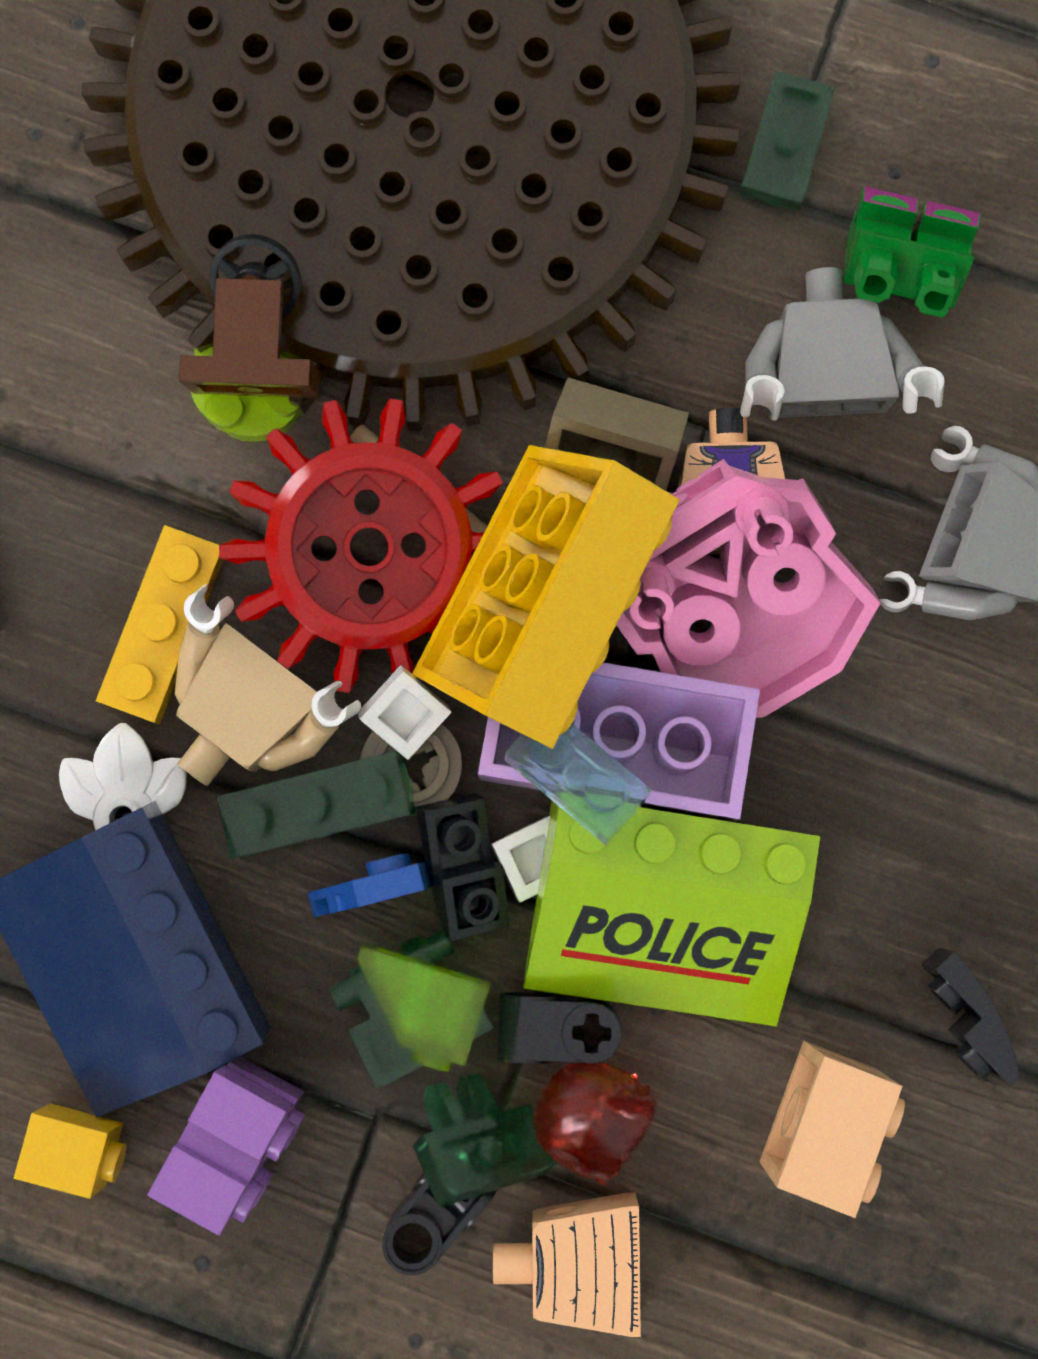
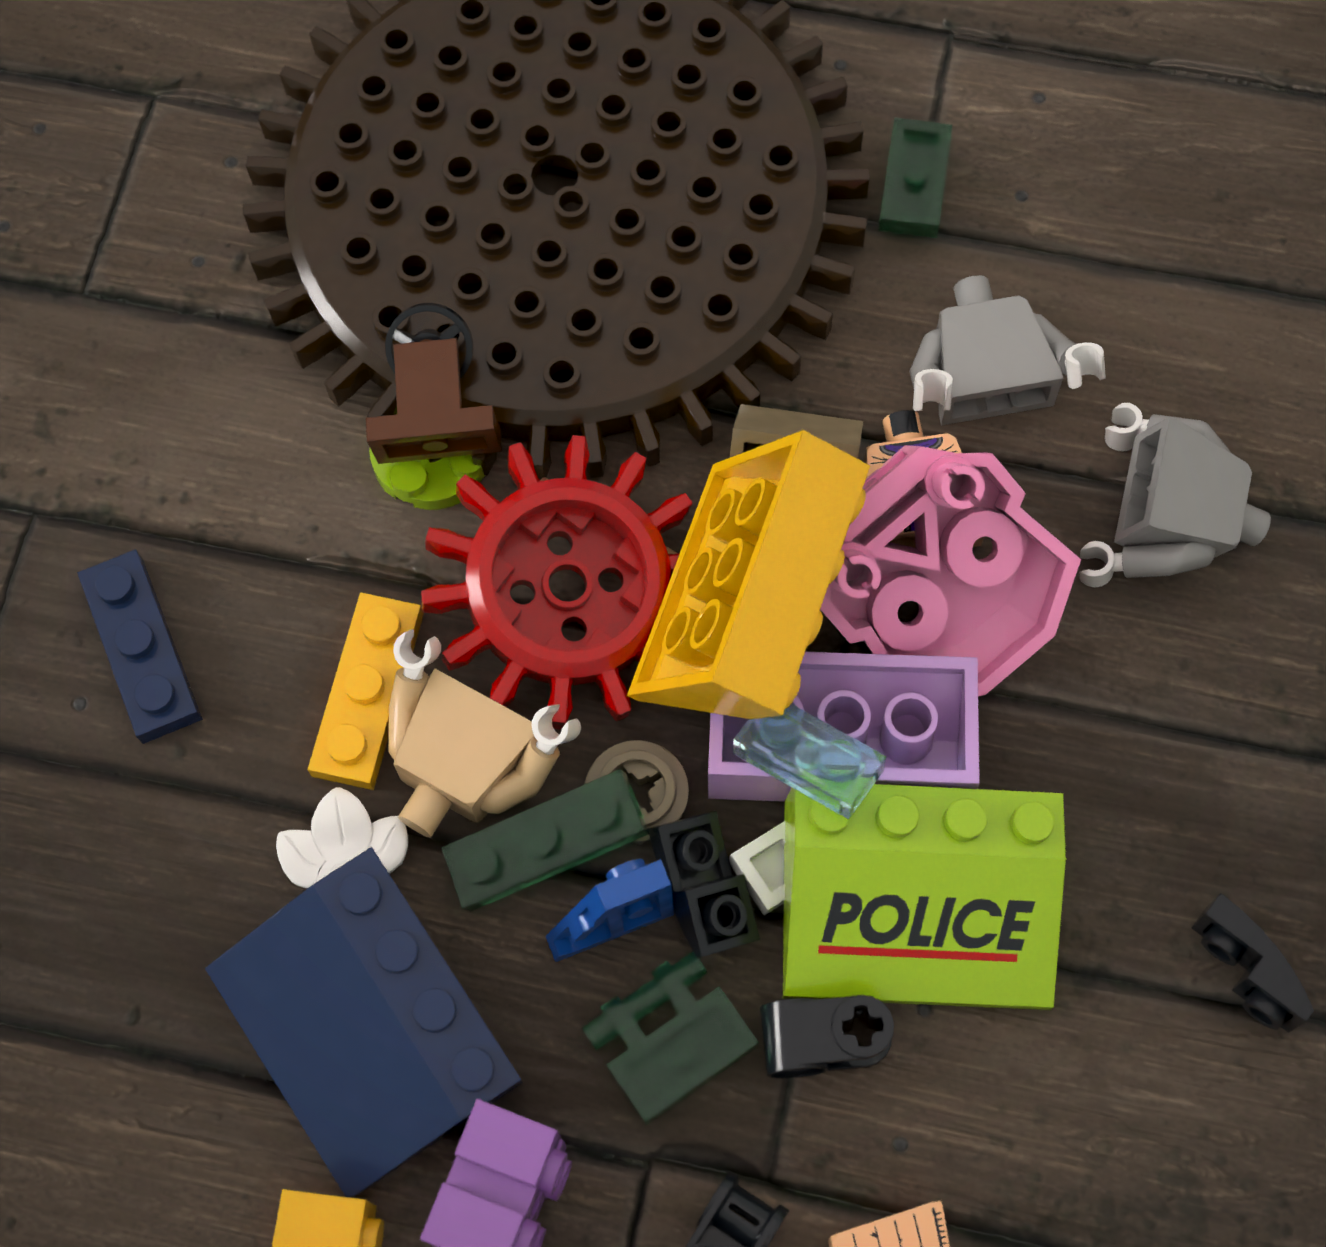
camera: 10 degrees left, 15 degrees down
(404, 712) = (624, 730): white plate -> none
(426, 1004) = (688, 1015): clear neon green slope -> none
(476, 1145) = (757, 1164): clear green hinge -> none
(593, 1118) = (879, 1119): clear red hair -> none
(832, 1129) = (1130, 1087): light nougat brick -> none
(923, 267) = (1030, 262): green hips -> none

